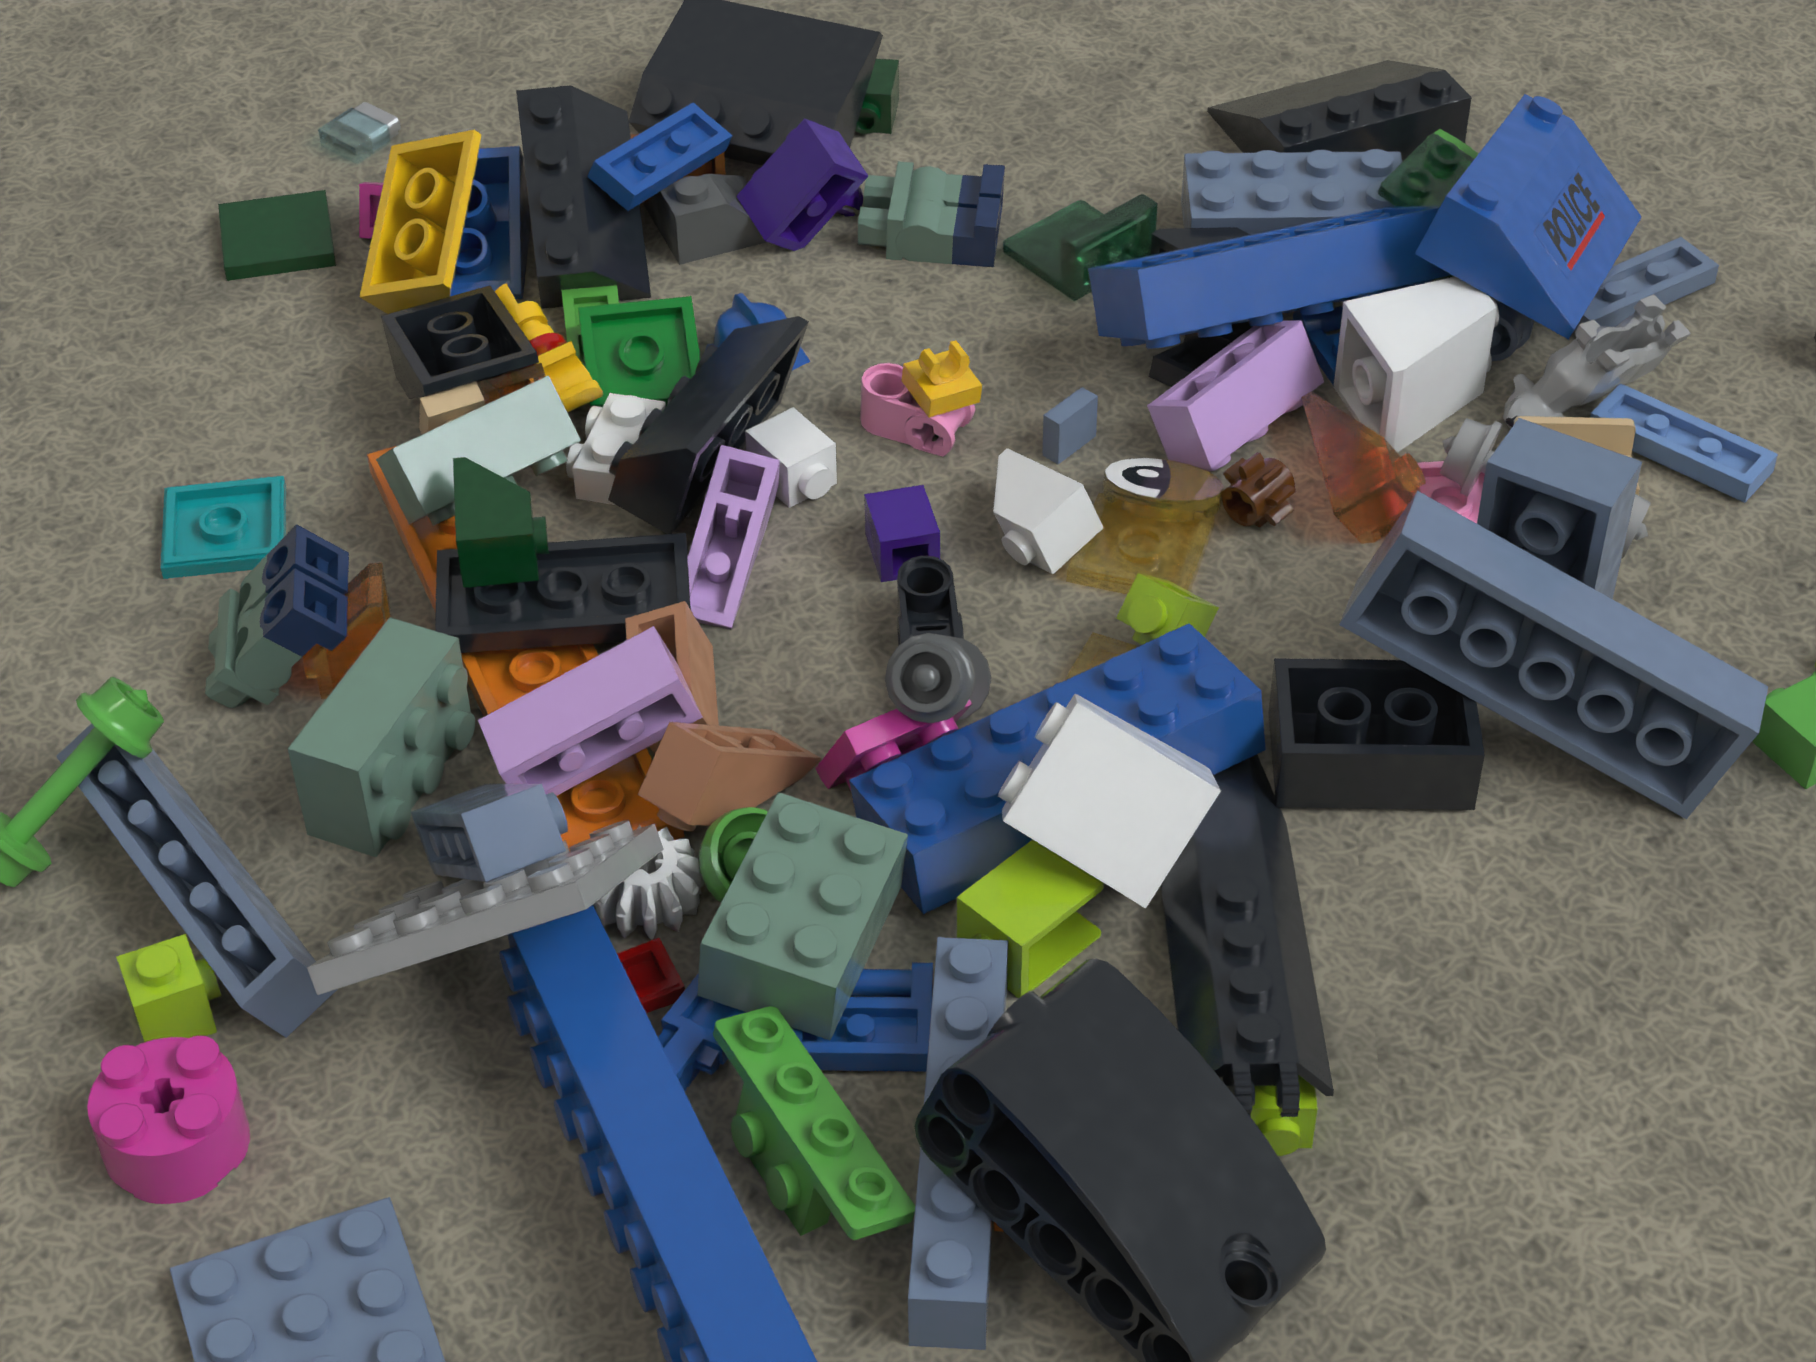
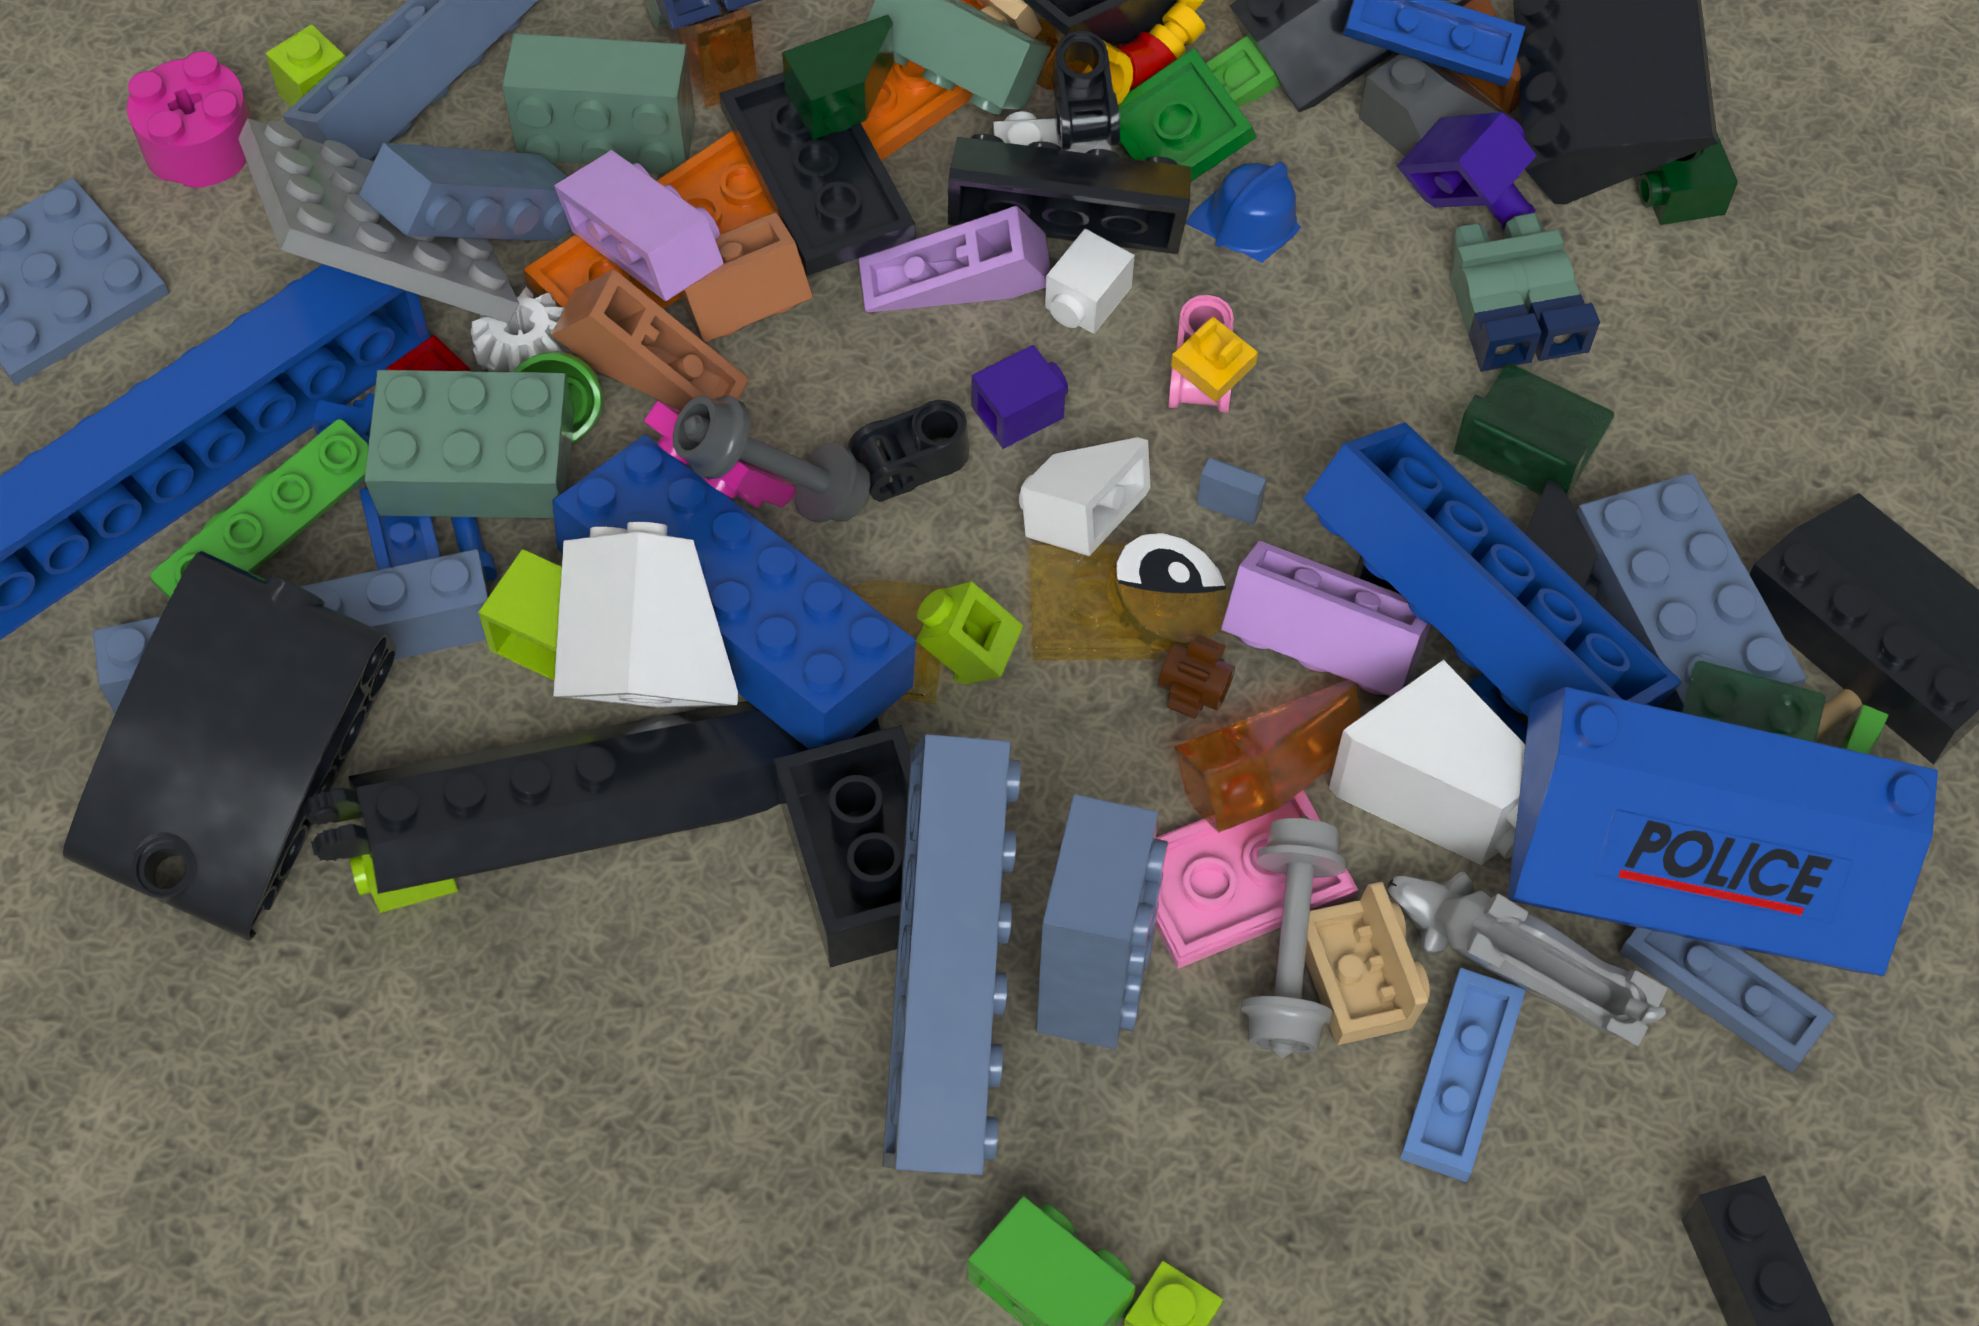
camera: 70 degrees right, 15 degrees up
(601, 373) = (1084, 102): none -> black piece

